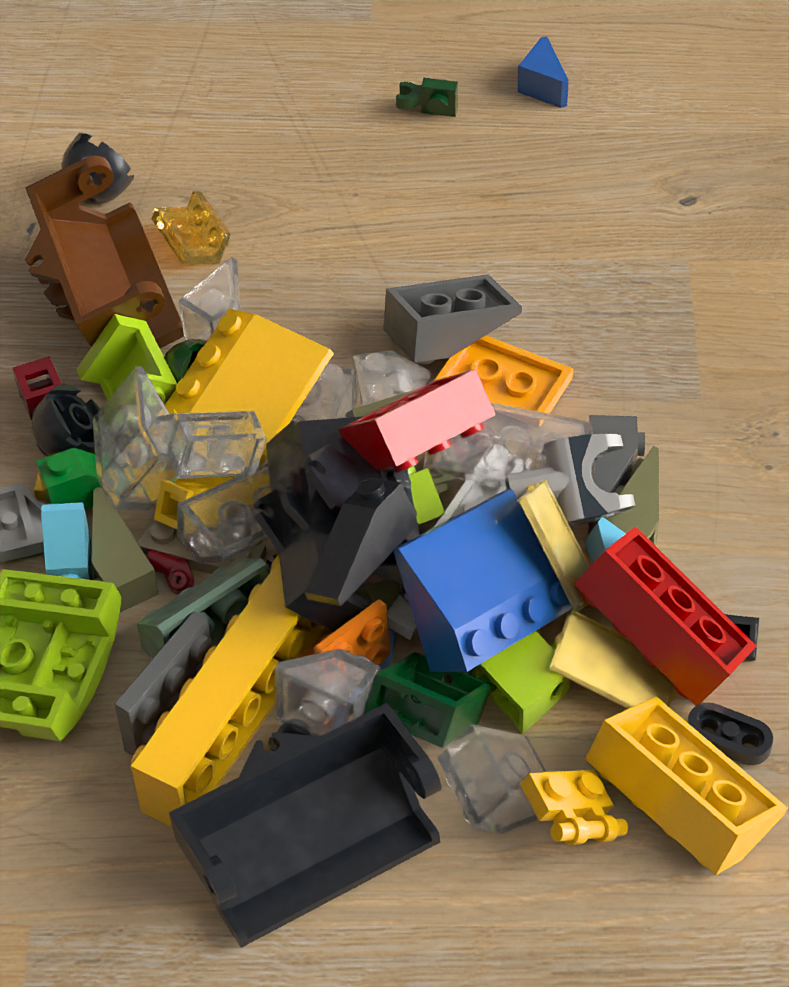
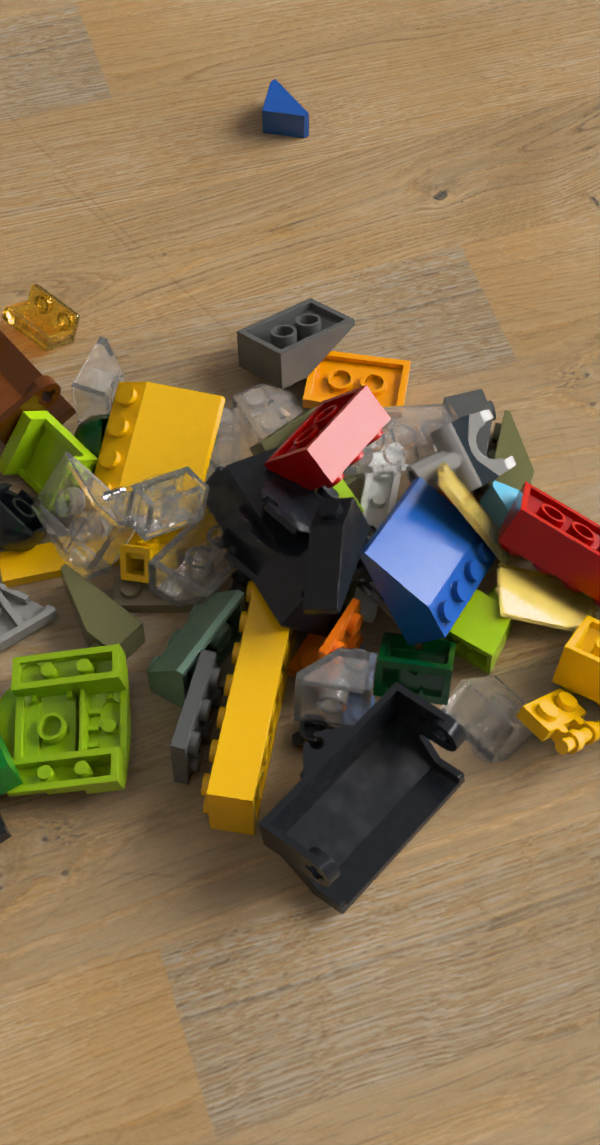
camera: 20 degrees left, 5 degrees up
(66, 541) = (58, 619): medium azure slope -> none
(69, 477) = (35, 566): green slope -> none
(174, 569) = (153, 618): dark red arm -> none
(434, 96) = (198, 152): dark green plate -> none

